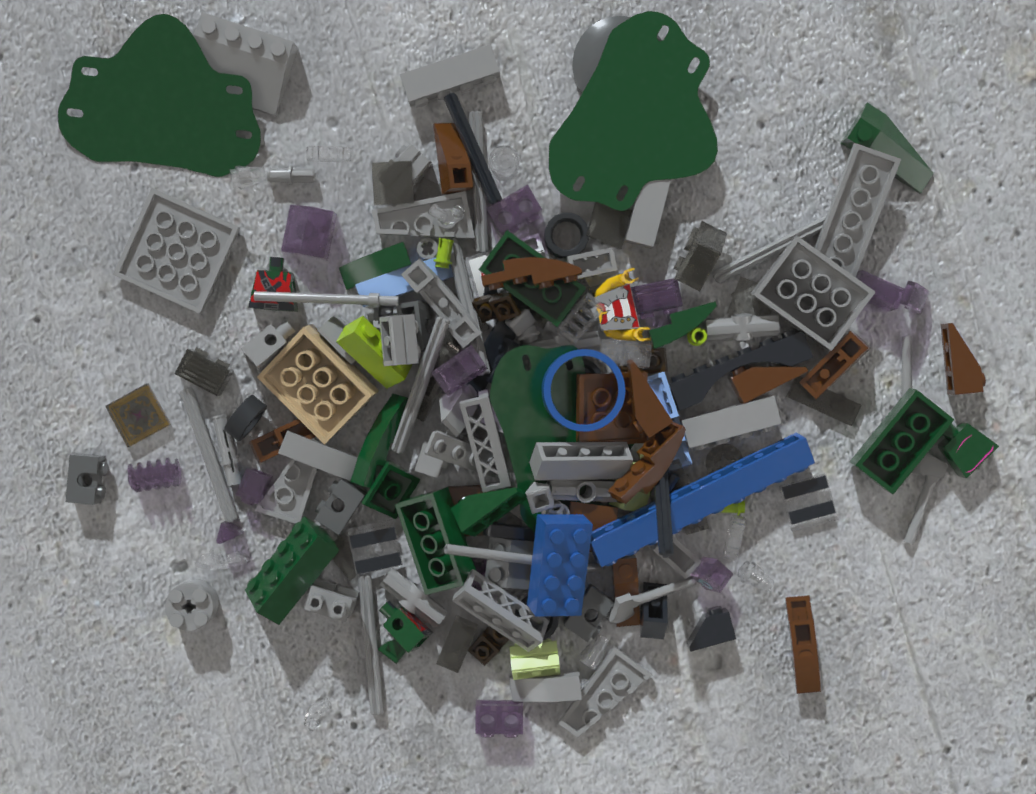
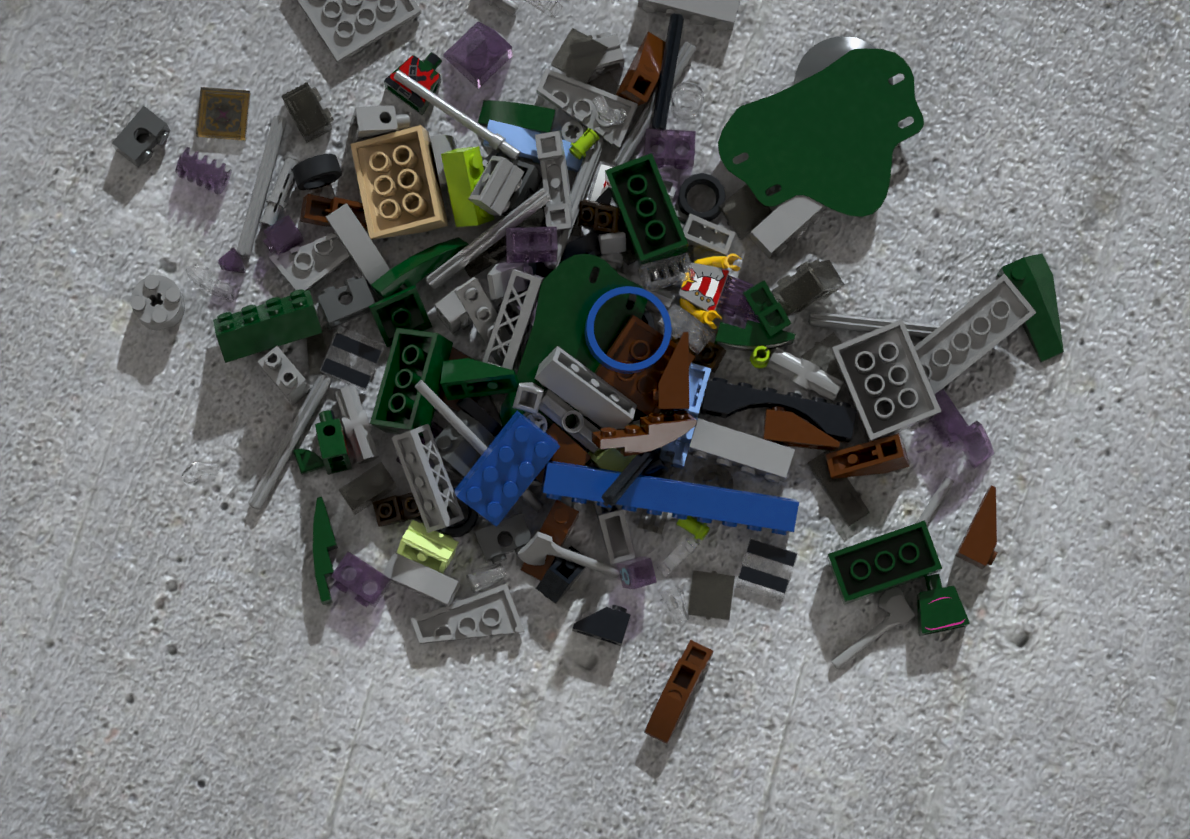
camera: 30 degrees right, 10 degrees down
(449, 706) = (323, 543): none -> dark green slope
(542, 270) = (658, 202): reddish brown slope -> none
(679, 296) = (766, 308): none -> dark green slope
(777, 550) = (711, 595): none -> clear smoke piece

